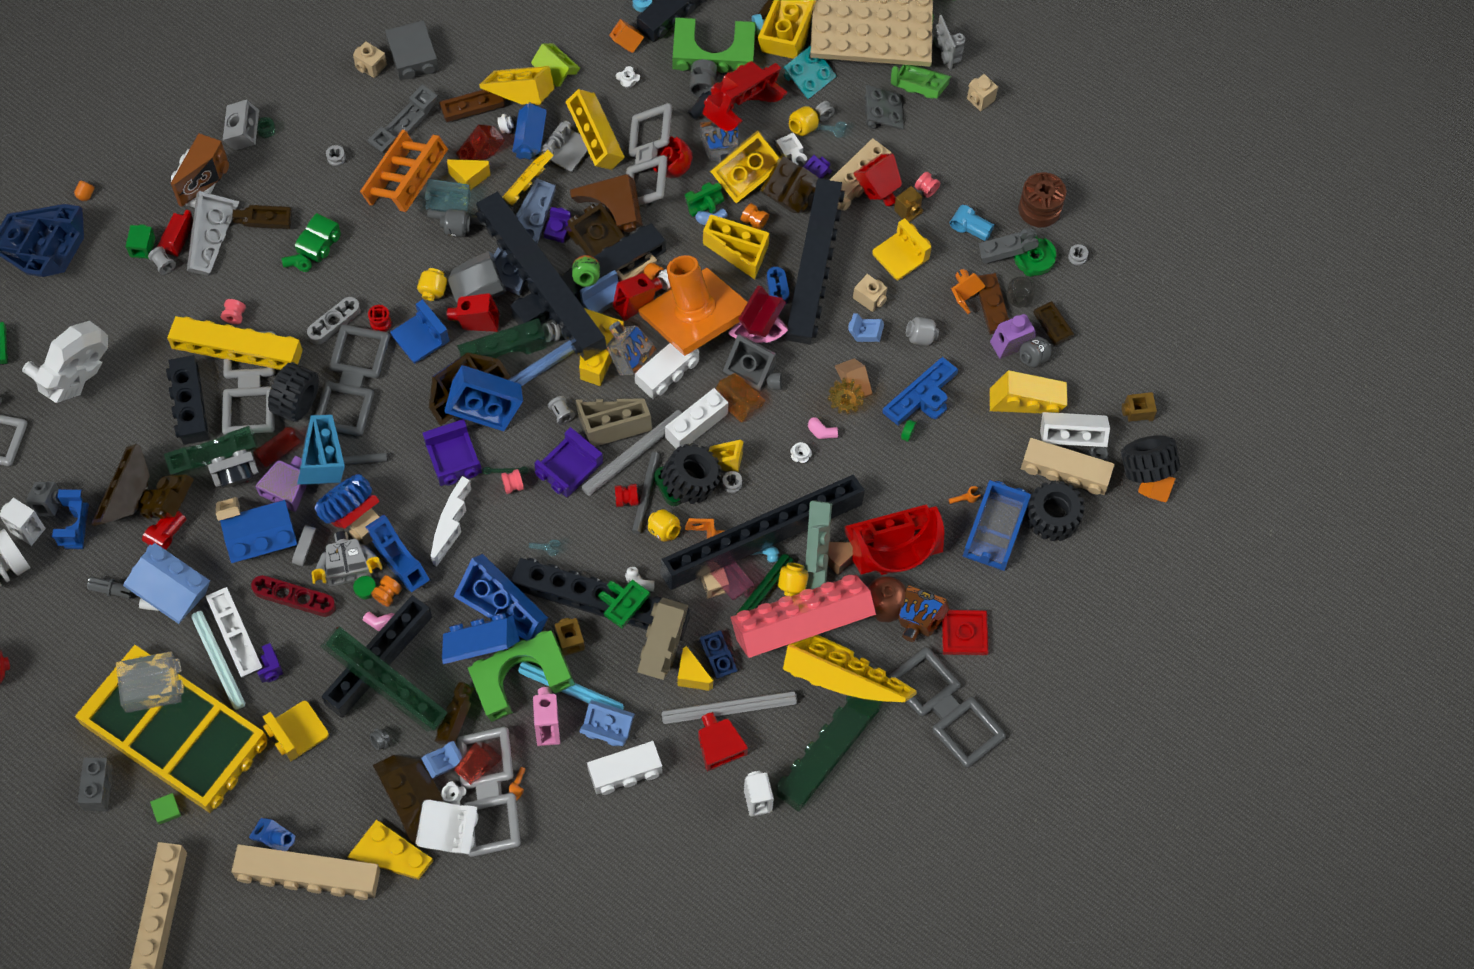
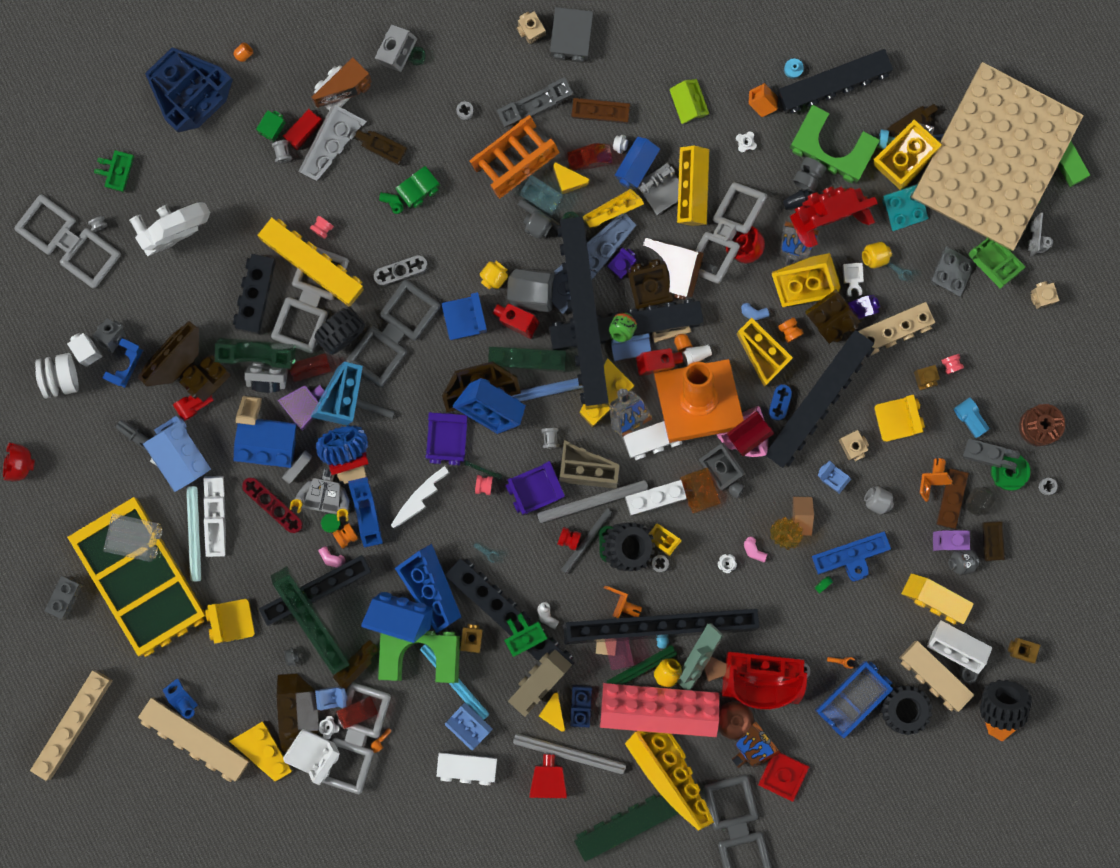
camera: 25 degrees right, 20 degrees up
(165, 808) = (109, 639): bright green tile -> none
(273, 668) = (233, 554): dark purple bracket -> none
(379, 318) = (438, 291): red wheel -> none
(520, 84) = (647, 113): yellow slope -> none
(546, 717) = (421, 706): bright pink torso -> none
(551, 331) = (570, 363): light grey bush -> none
(664, 525) = (587, 578): yellow head -> none
(705, 199) = (756, 296): green hips -> none
(758, 793) = (557, 838): white brick -> none
(824, 110) = (899, 252): light grey bush -> none
(880, 178) = (913, 344): red torso -> none

